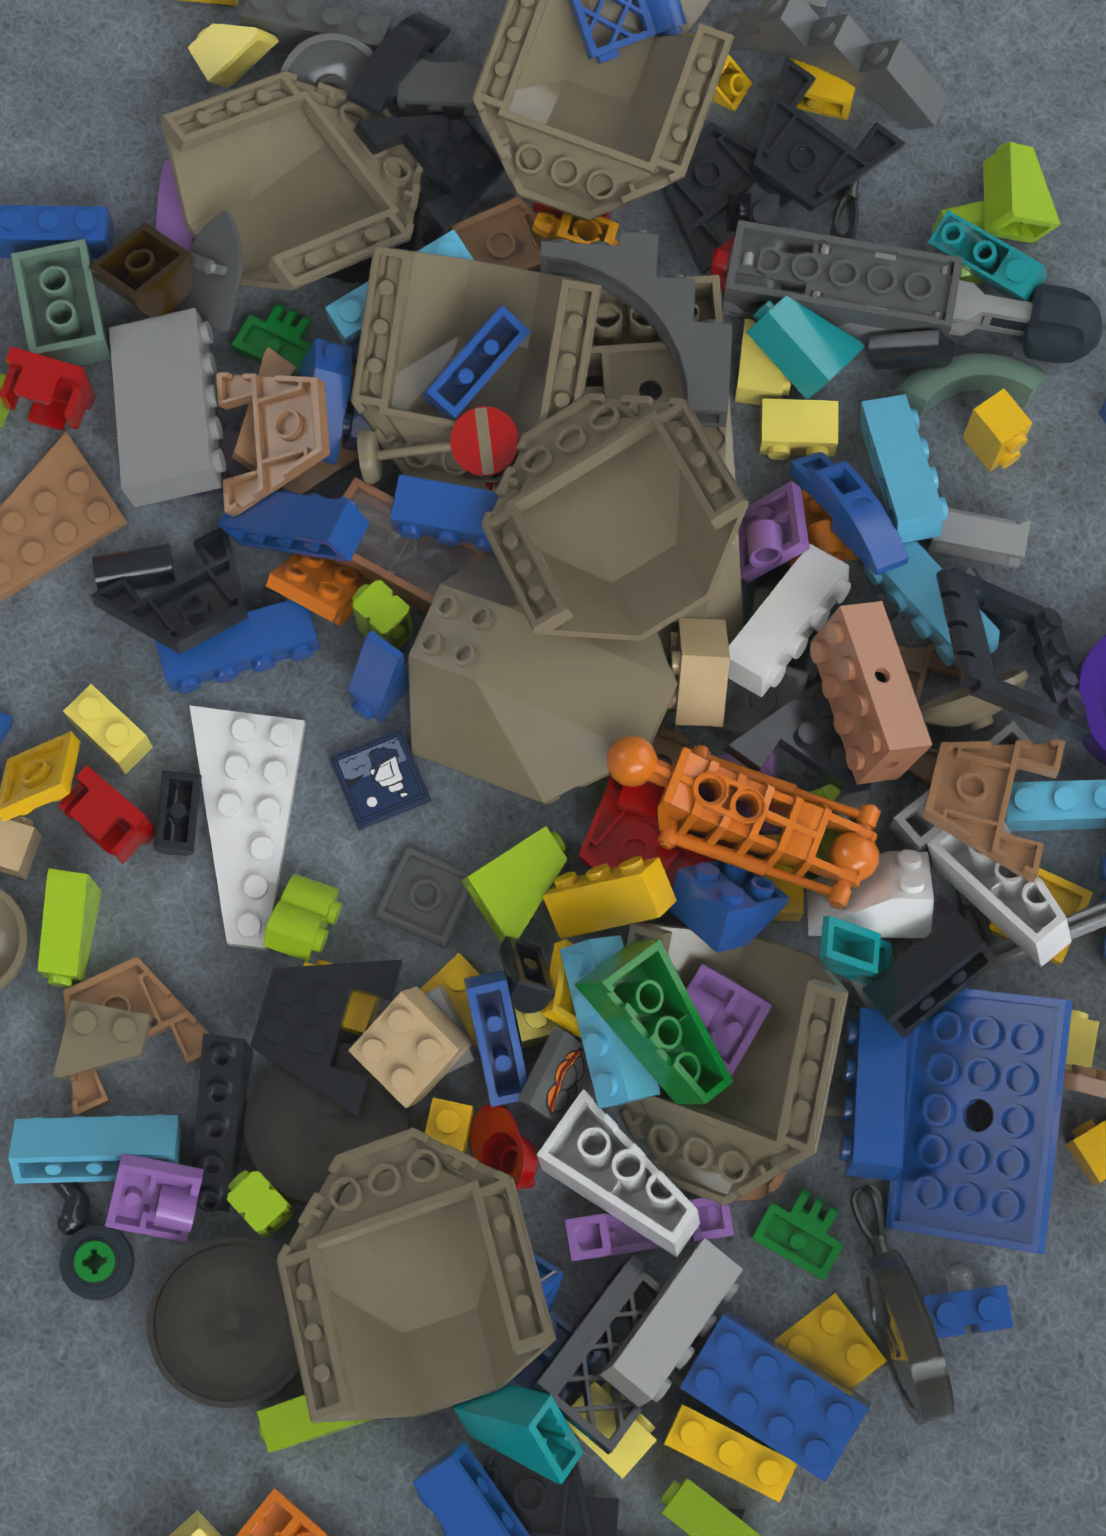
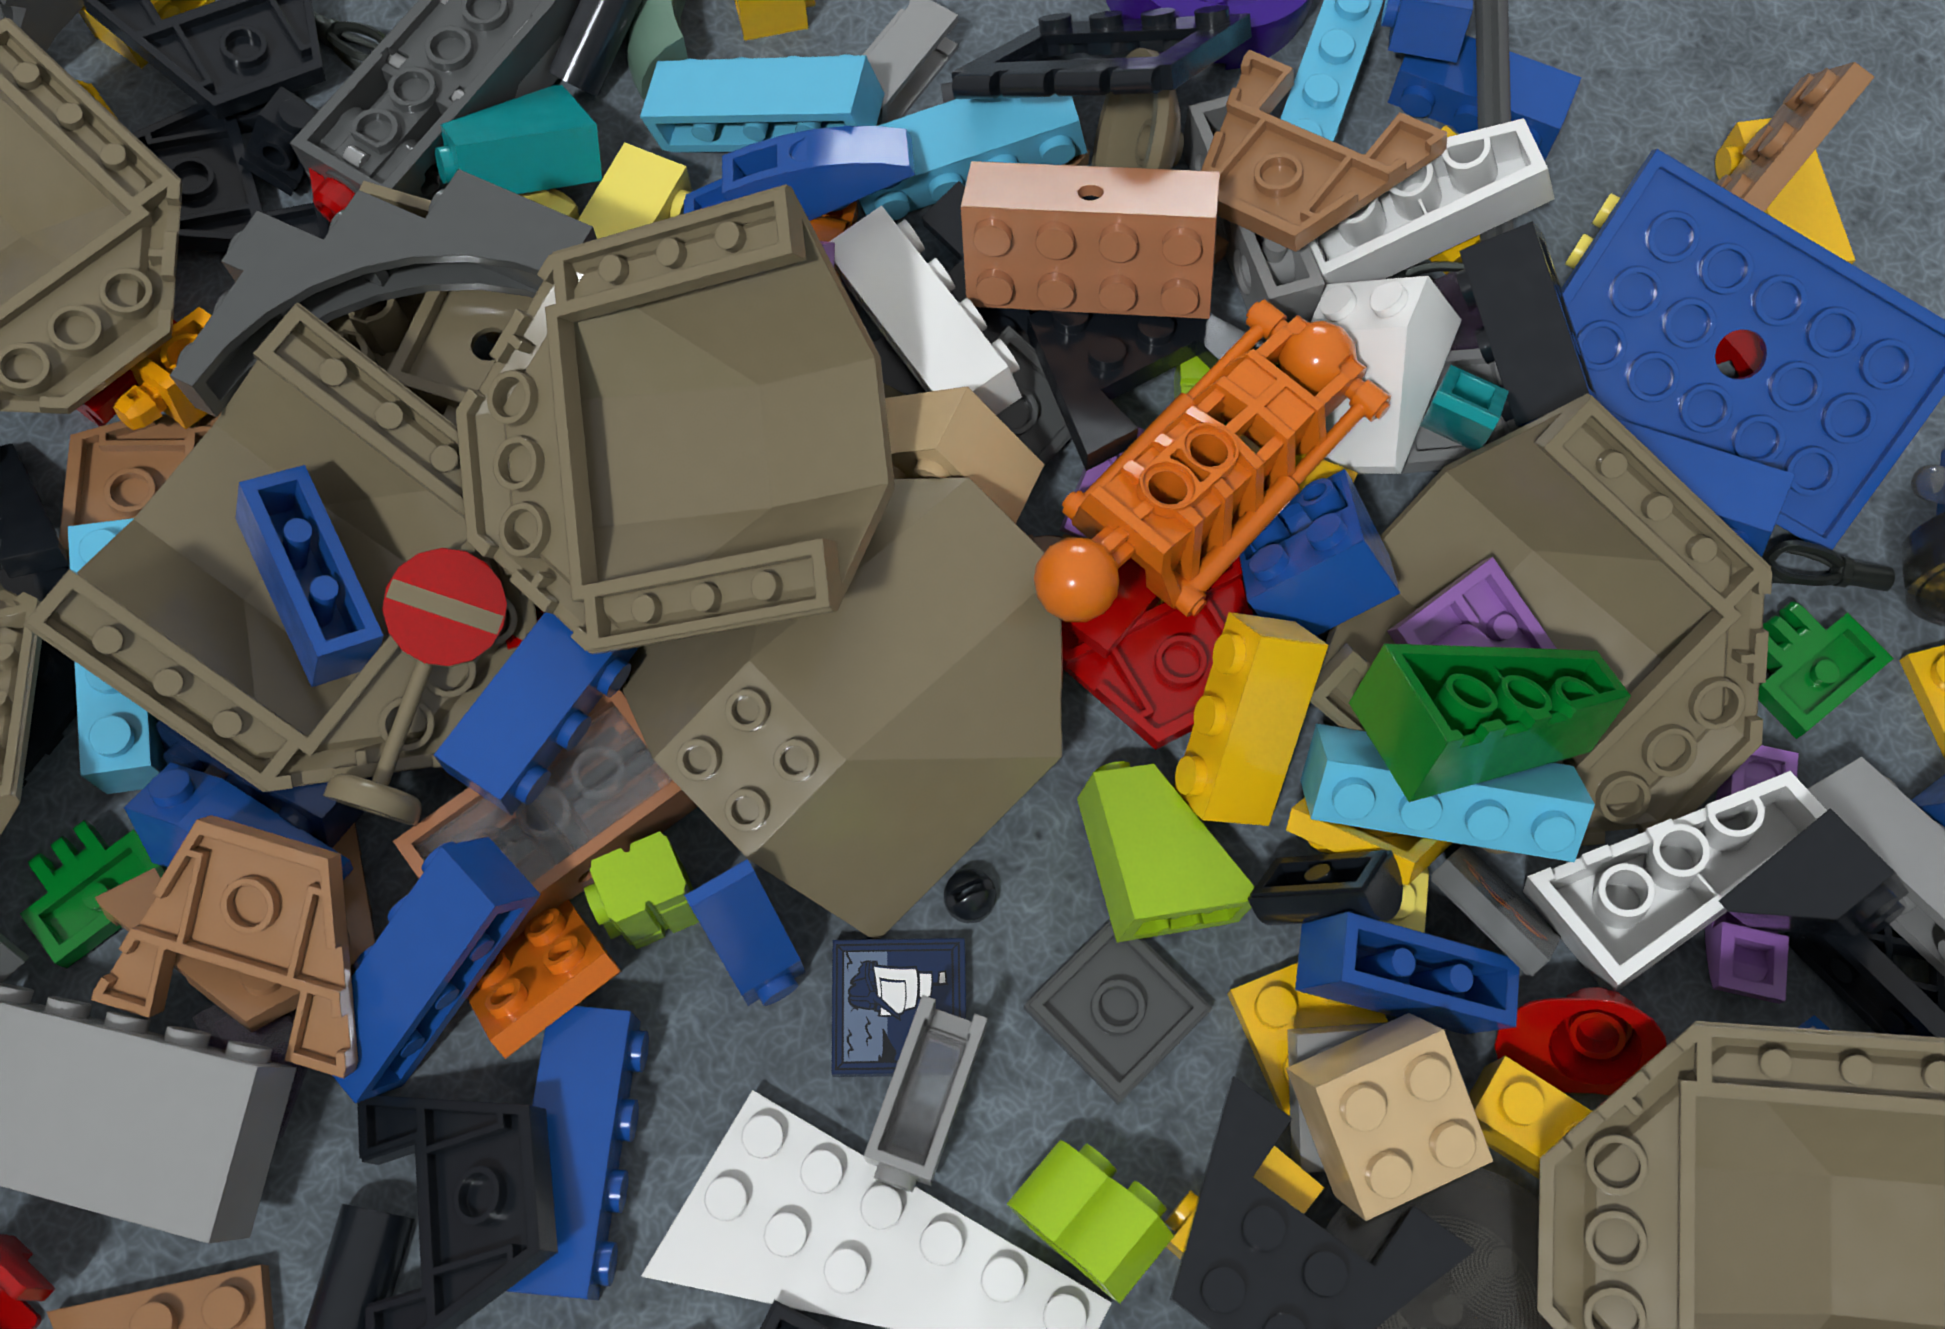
camera: 70 degrees left, 5 degrees down
(333, 806) = (924, 1096): none -> window
(452, 797) = (975, 905): none -> black hinge
(635, 1243) = (1820, 885): none -> black slope

